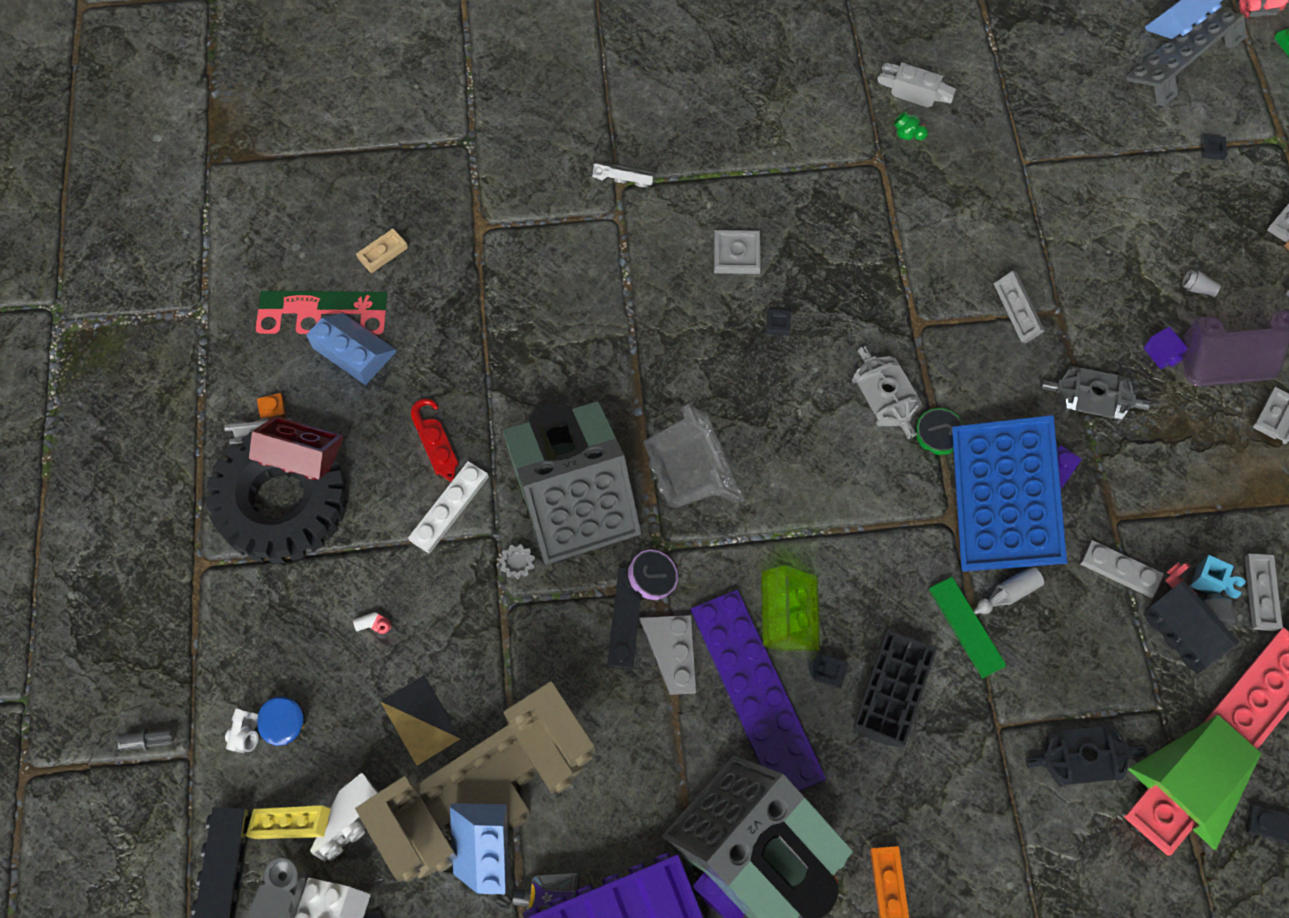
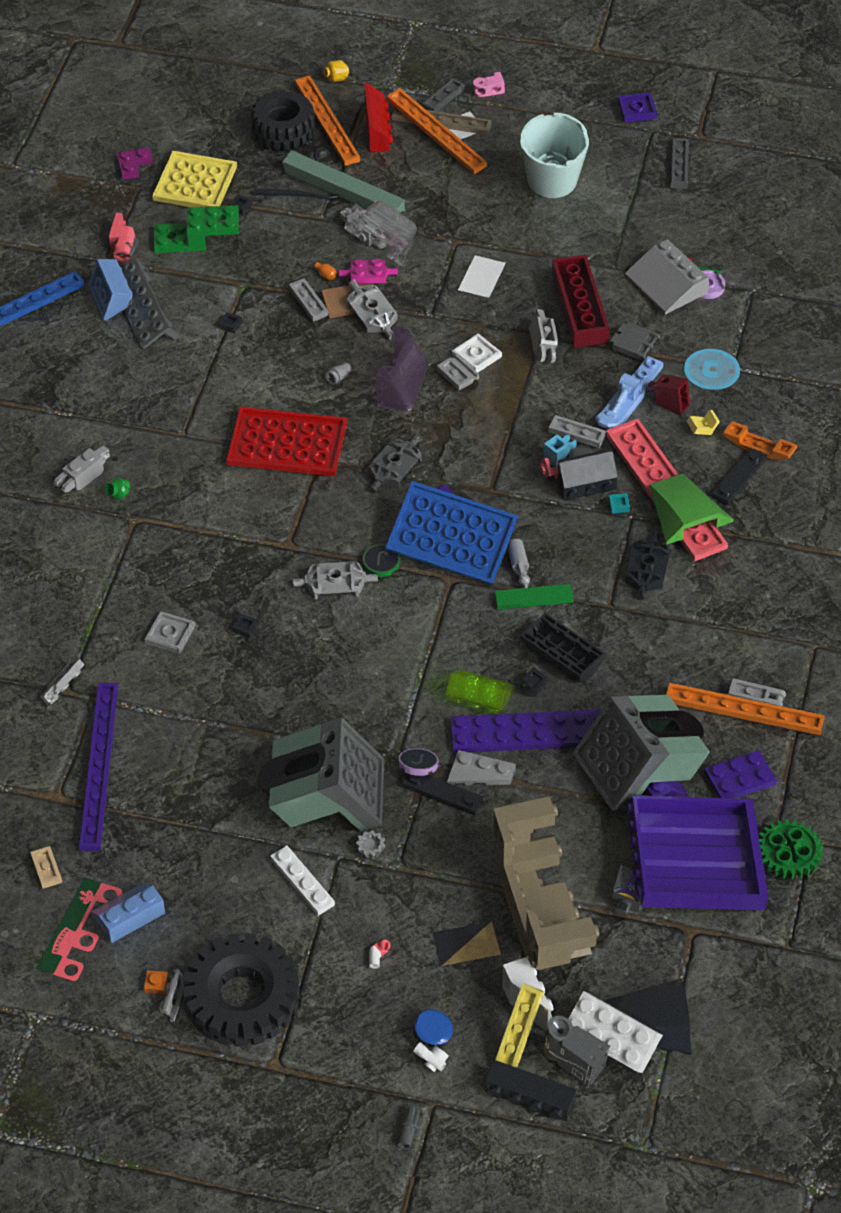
camera: 70 degrees left, 15 degrees down
(294, 447) = (216, 952): slope -> none
(434, 441) = (241, 875): red plate -> none
(481, 846) = (579, 900): medium blue slope -> none
(528, 250) = (99, 767): none -> dark purple plate
(691, 461) = (351, 705): clear windscreen -> none
(1019, 307) = (306, 479): light grey plate -> none
(1067, 268) = (287, 441): none -> red plate
(1122, 569) = (529, 497): light grey plate -> none
(1165, 348) = (380, 411): dark purple brick -> none
(1170, 685) = (619, 503): none -> teal plate

